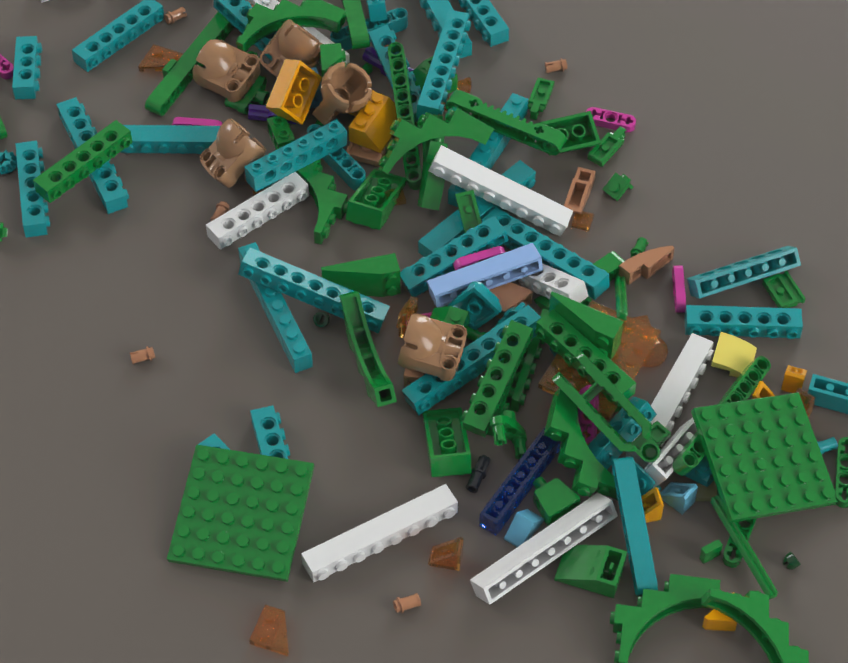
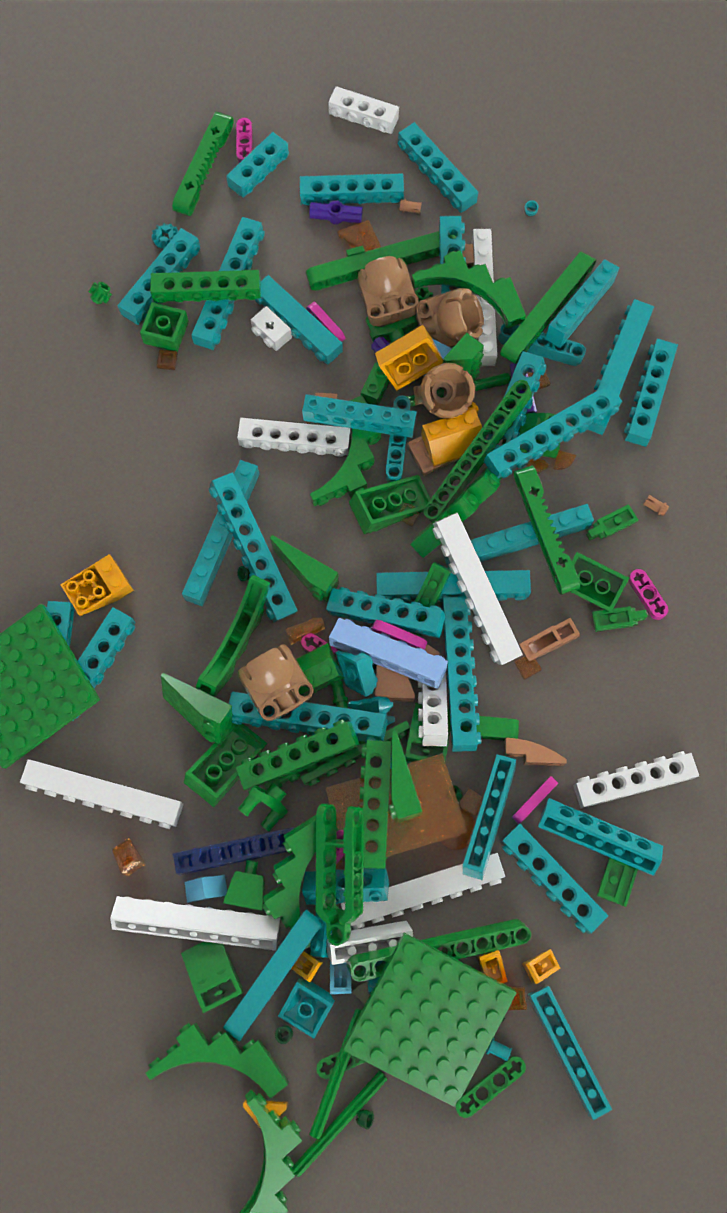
camera: 45 degrees right, 20 degrees up
(76, 214) = (164, 327): none -> green brick
(99, 237) = (167, 359): none -> reddish brown tile
(123, 55) = (327, 212): none -> dark purple piece
(142, 355) = (100, 490): nougat pin -> none
(160, 158) = (271, 329): none -> white brick
(221, 407) = (97, 586): none -> light orange slope
(222, 208) = (268, 413): nougat pin -> none
(230, 153) = (317, 372): medium nougat piece -> none
(388, 417) = (204, 712): none -> green slope
(406, 603) = (63, 867): nougat pin -> none
(430, 127) = (473, 485): green arch -> none
(478, 473) = (219, 811): black axle -> none
(617, 186) = (587, 662): green bracket -> none
(621, 298) = (469, 772): green axle -> none
(640, 246) = (543, 734): green pin -> none
(659, 433) = (372, 915): green tile -> none
(664, 314) = (489, 817): none -> teal brick
(678, 530) = (307, 1007): none -> teal slope
(686, 561) = (284, 1040): none -> dark green hinge
(710, 551) = (312, 1049): green tile -> none
(727, 226) = (685, 771): none -> white brick
(733, 354) = (514, 899): light yellow slope -> none
(778, 574) = (339, 1123): none -> green axle

